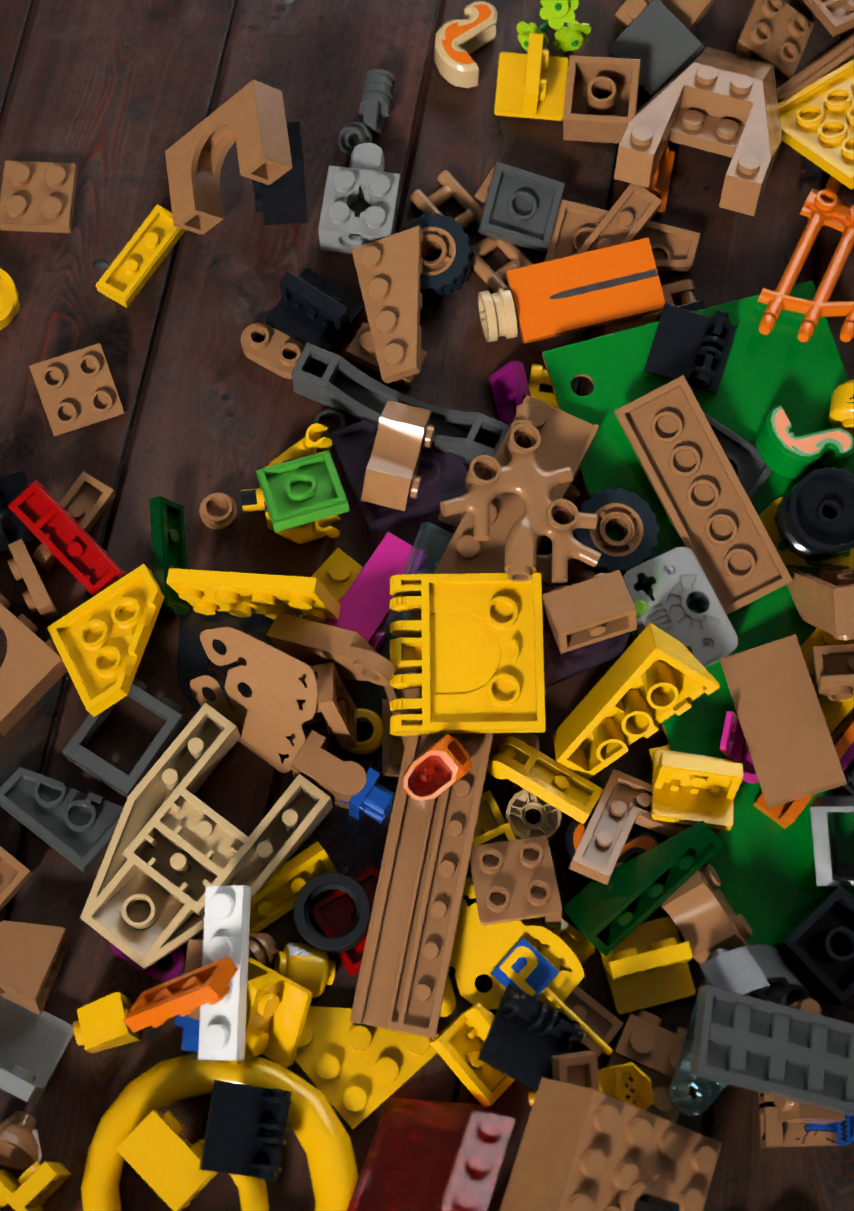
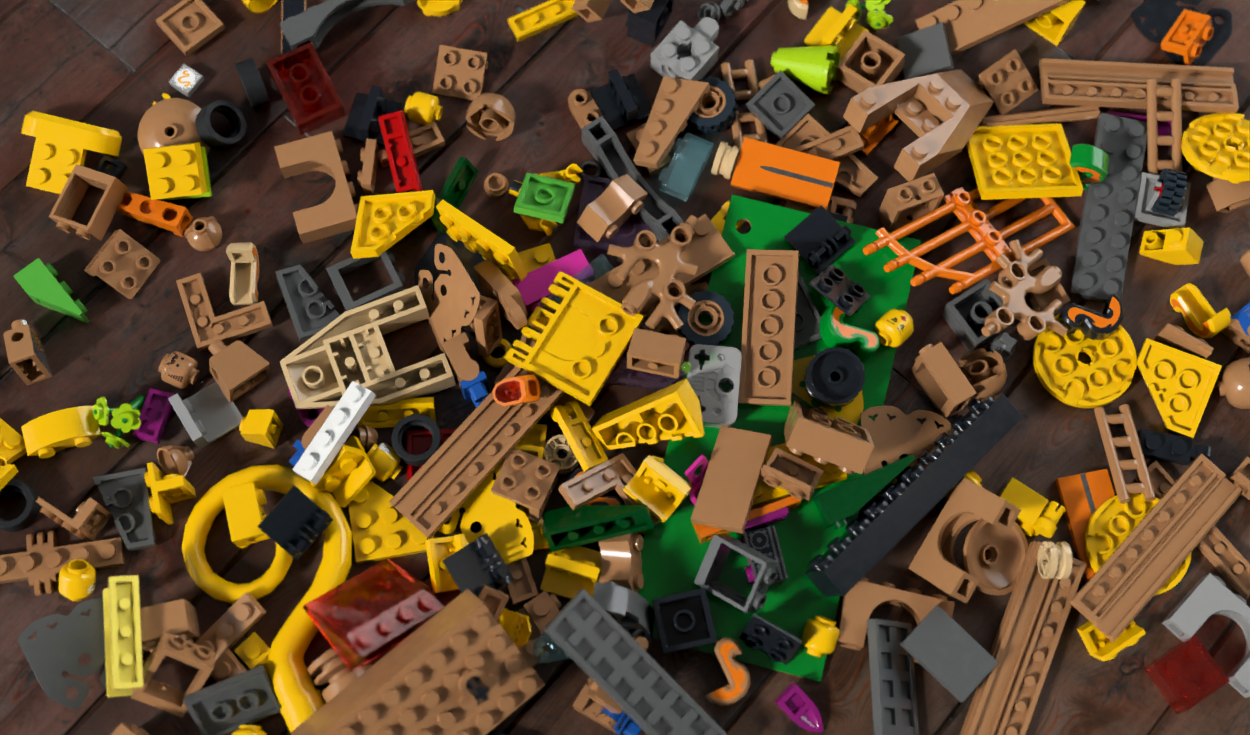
camera: 30 degrees right, 0 degrees up
(58, 463) = (423, 108): none -> yellow head
(157, 422) = (491, 116): none -> medium nougat cylinder
(181, 995) = (303, 430): orange plate -> none
(453, 350) = (686, 166): none -> clear light blue brick
(509, 390) = (707, 204): magenta plate -> none
(523, 138) = (808, 65): none -> lime cone
(532, 973) = (504, 535): piece -> none
(762, 396) = (840, 290): none -> black hinge
(763, 240) = (910, 199): none -> medium nougat window

